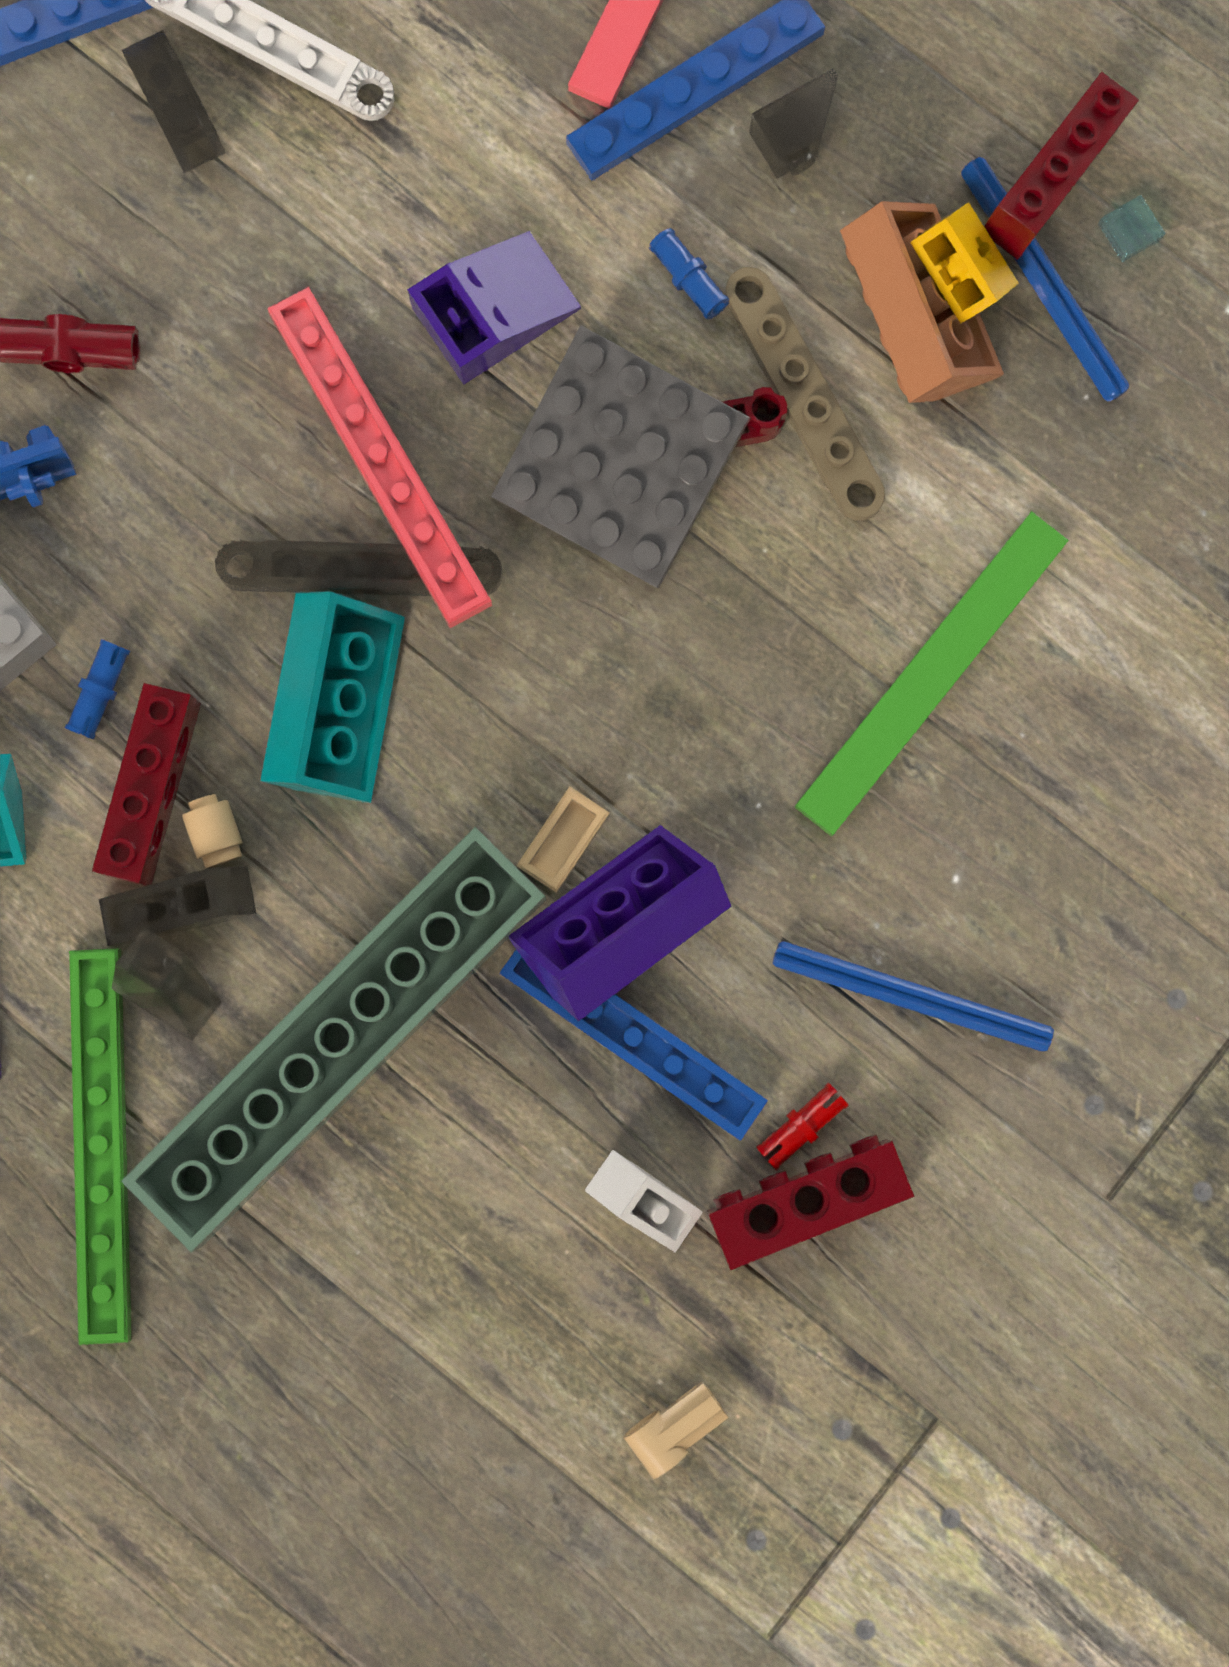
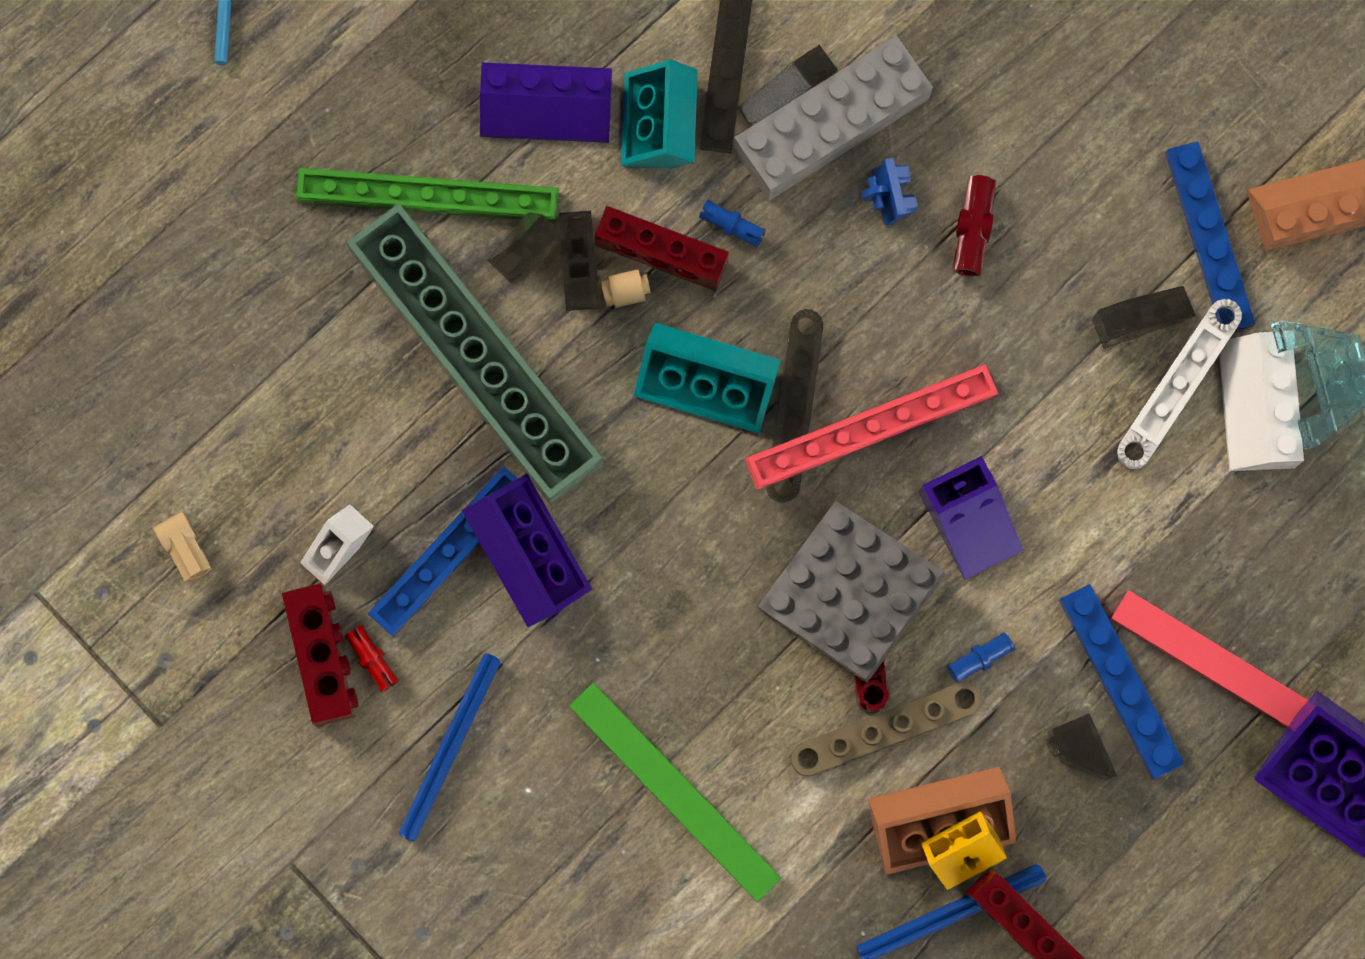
camera: 95 degrees right, 5 degrees down
(563, 839) = (590, 521): tan tile -> none

